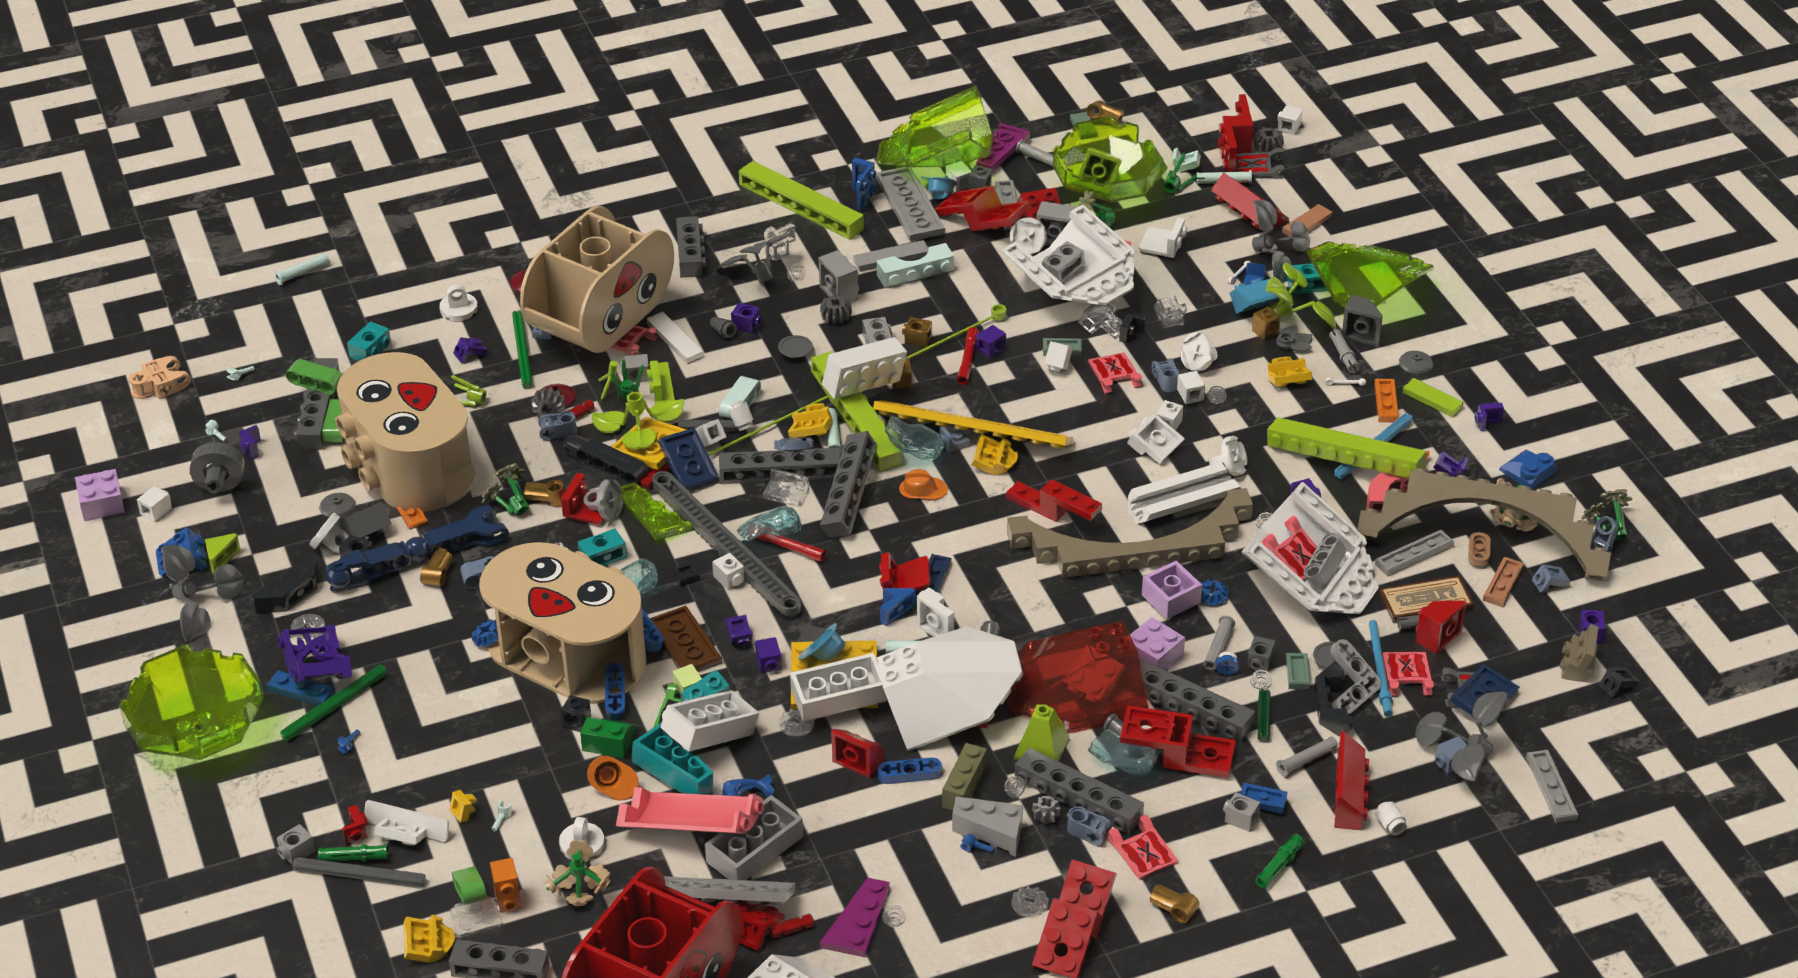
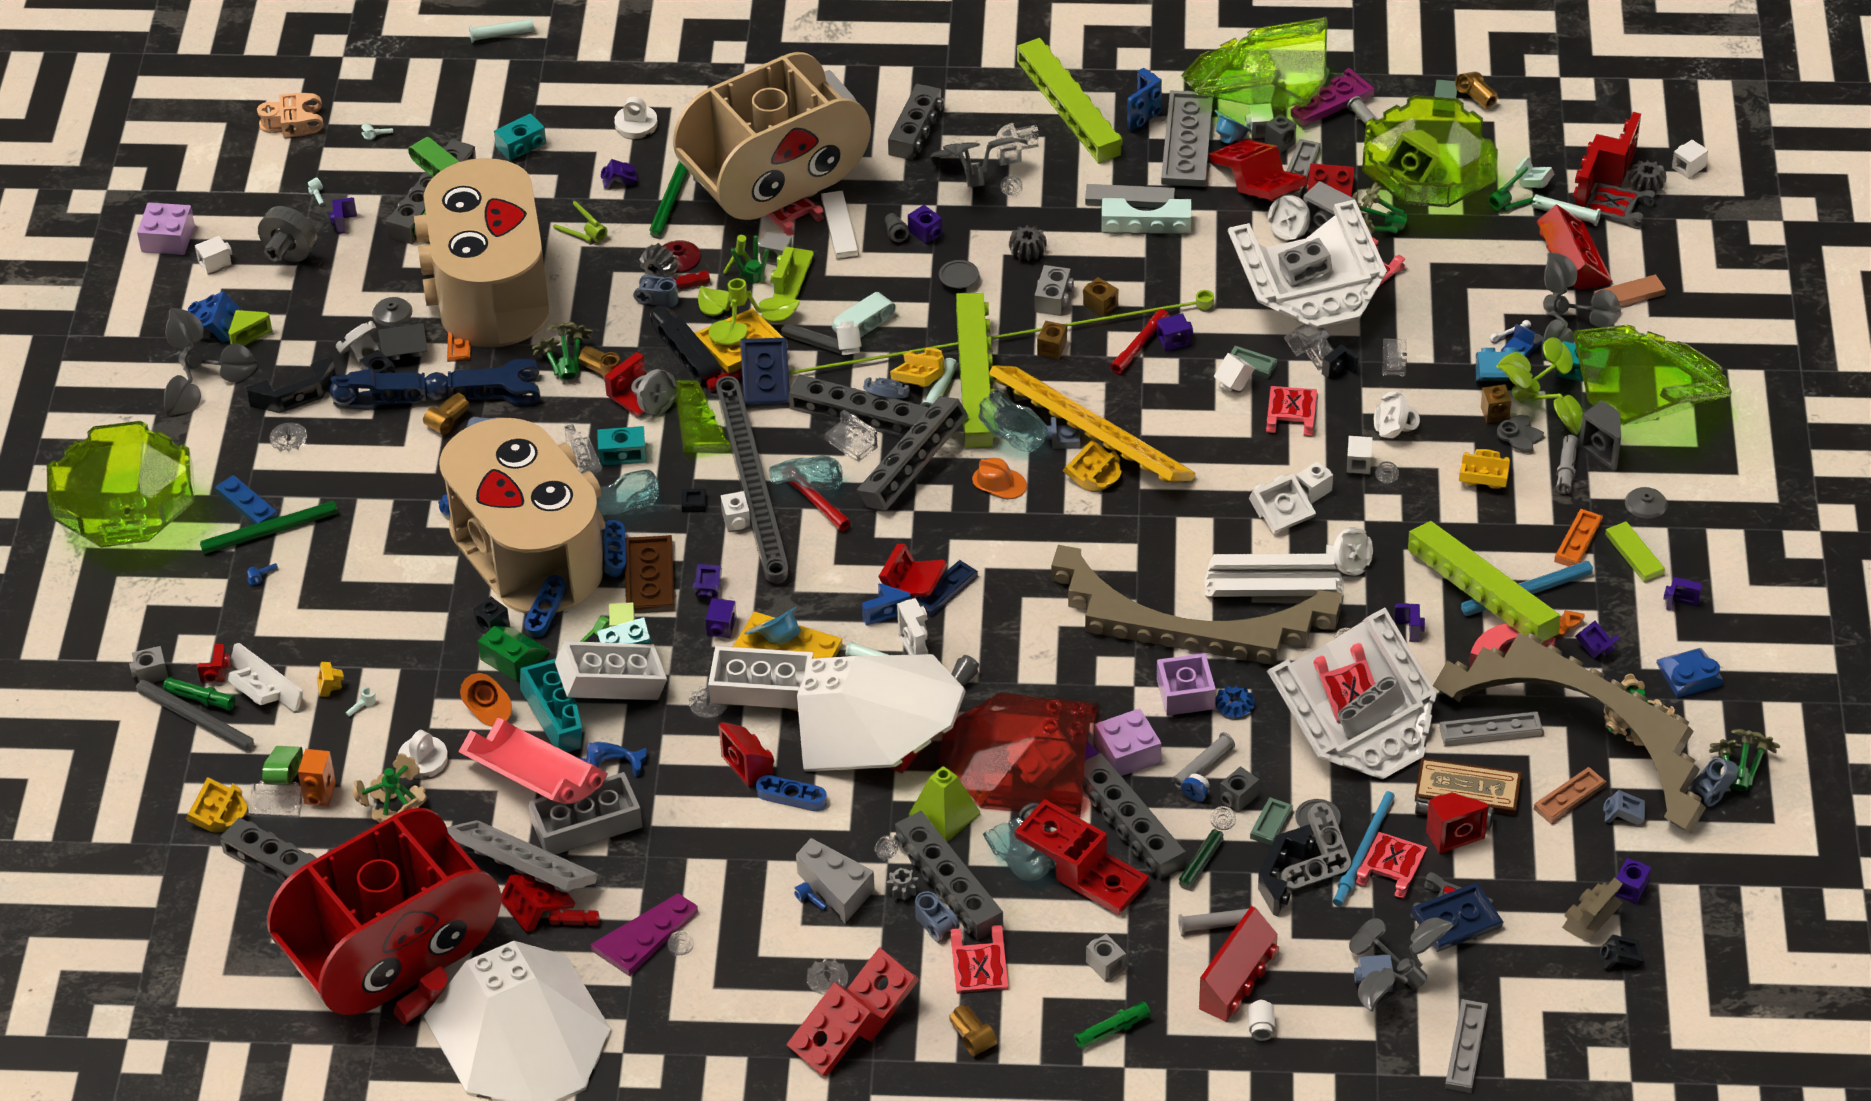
camera: 25 degrees right, 5 degrees up
(327, 642) = (283, 489): dark purple fence -> none
(711, 432) = (806, 348): white brick -> none
(838, 276) = (1049, 206): light grey brick -> none
(864, 367) = (998, 324): white brick -> none
(964, 775) = (840, 817): olive brick -> none
(1054, 500) = (1123, 541): red bracket -> none
(1163, 241) = (1444, 267): white bracket -> none
(1166, 374) = (1344, 426): sand blue piece -> none
(1269, 798) = (1141, 950): blue plate -> none
(1329, 381) = (1527, 495): white hinge -> none
(1479, 549) = (1561, 753): medium nougat plate -> none

